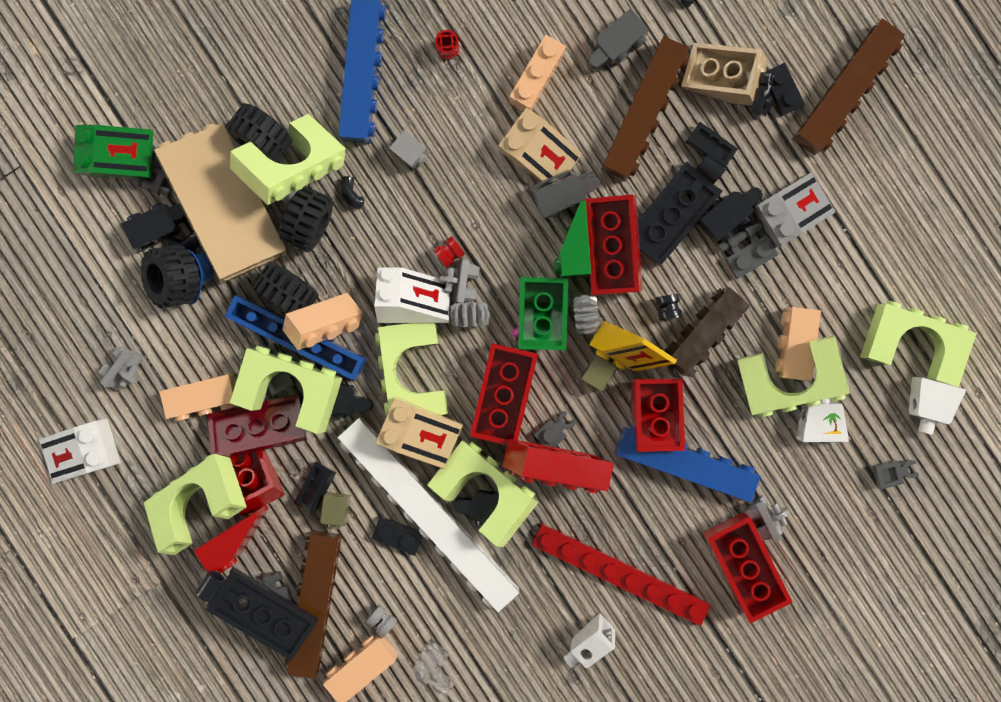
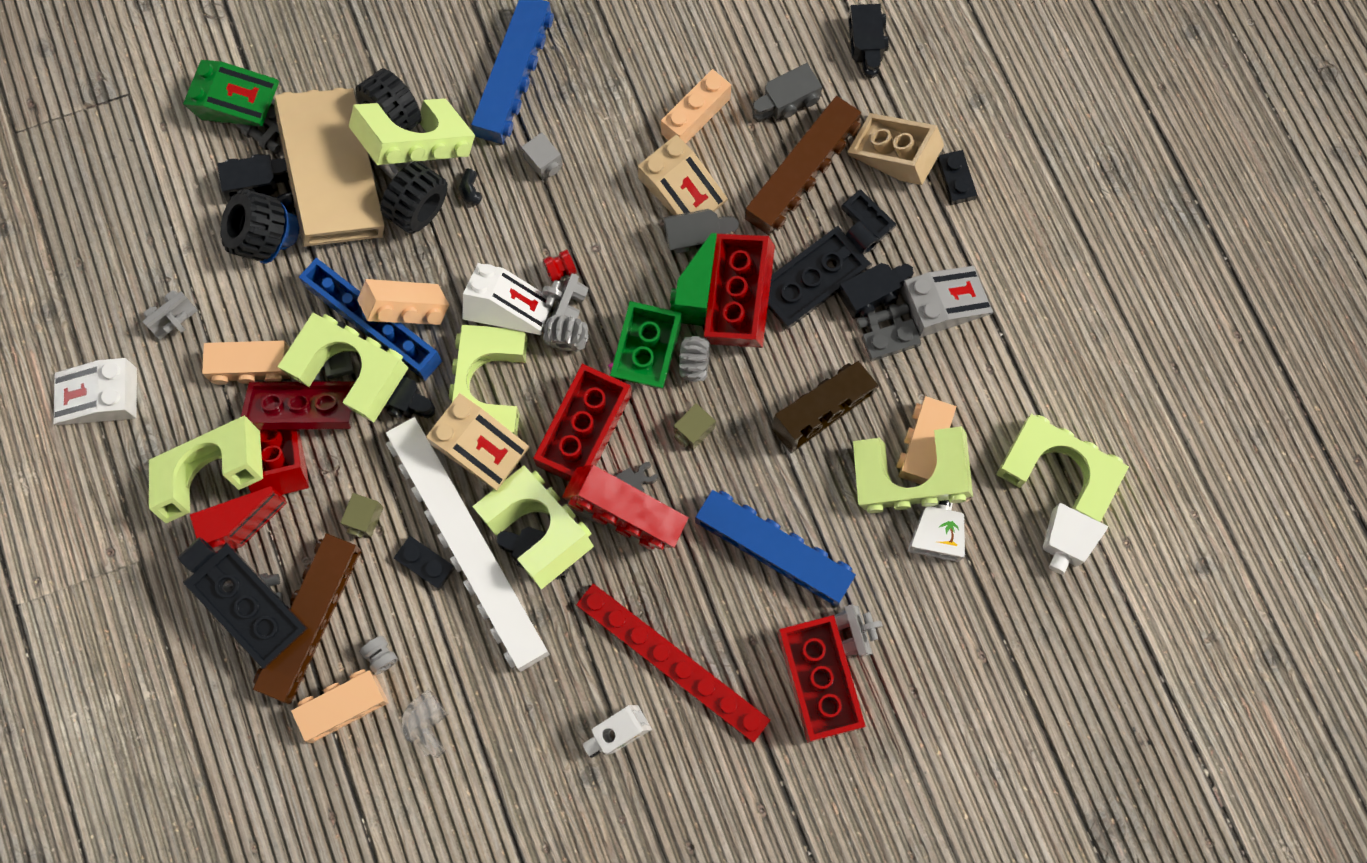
camera: 10 degrees right, 15 degrees down
(284, 288) = (370, 259): black tyre -> none
(315, 487) = (341, 489): black plate -> none
(449, 49) = (608, 63): red wheel -> none
(628, 349) = (733, 399): yellow slope -> none
(658, 414) = (751, 479): red slope -> none
(668, 306) = (788, 372): black wheel -> none
(763, 98) = (931, 177): black plate -> none
(847, 88) = (1026, 187): reddish brown brick -> none
(891, 473) = (1009, 609): dark grey plate -> none

